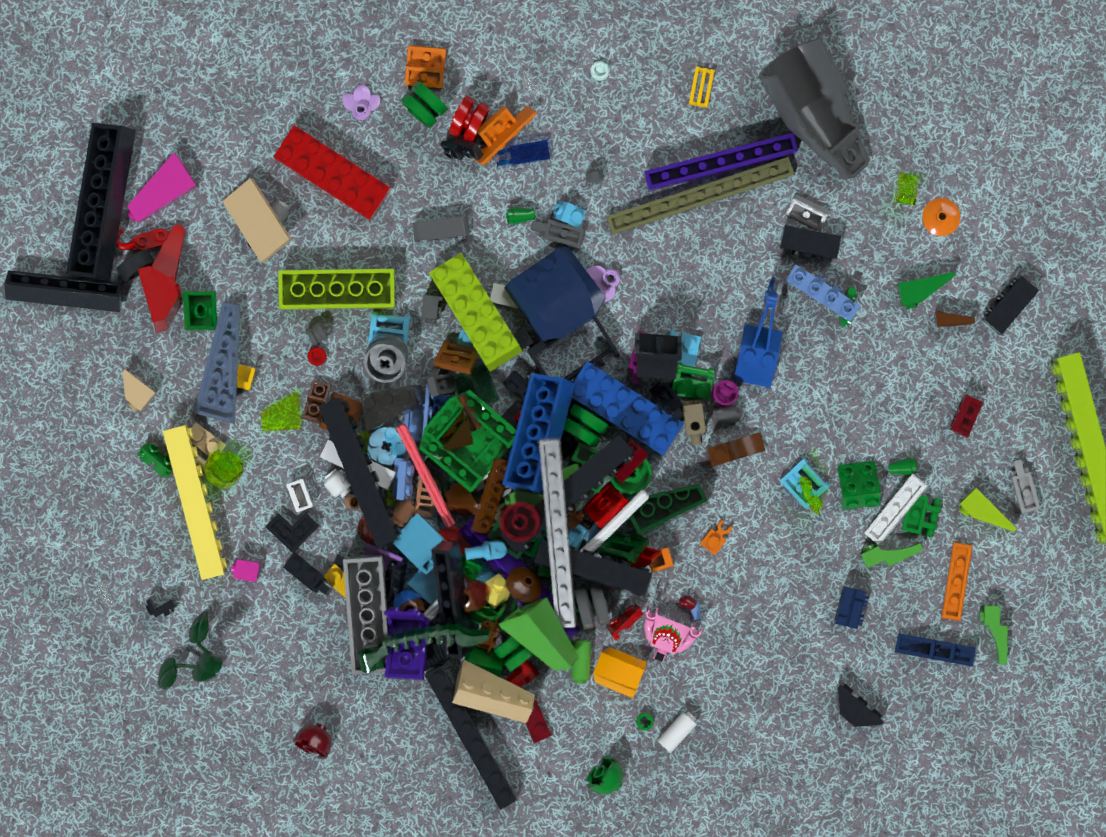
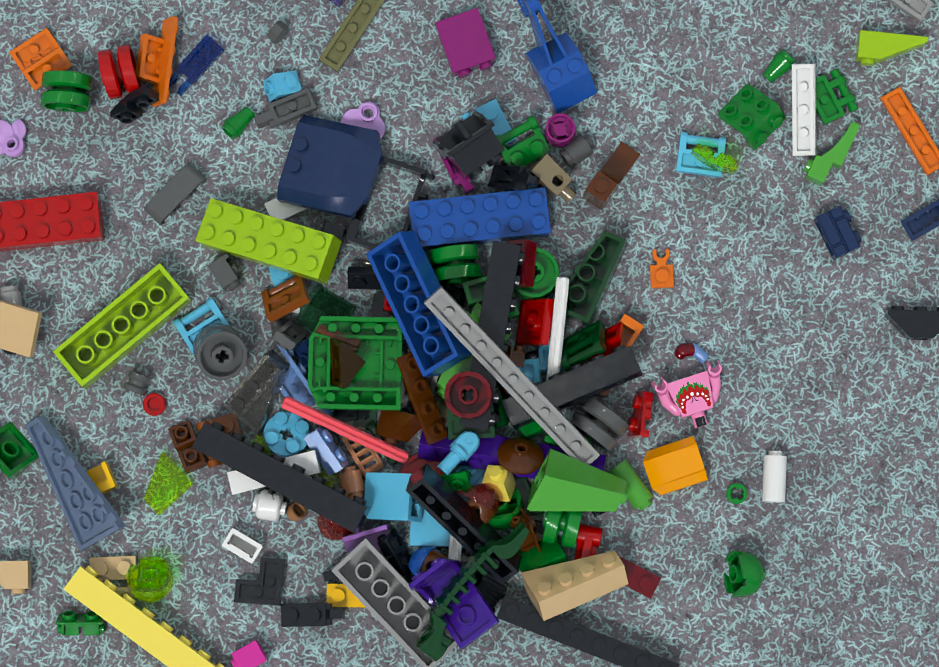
camera: 40 degrees left, 5 degrees down
(711, 284) = (465, 43): none -> magenta brick

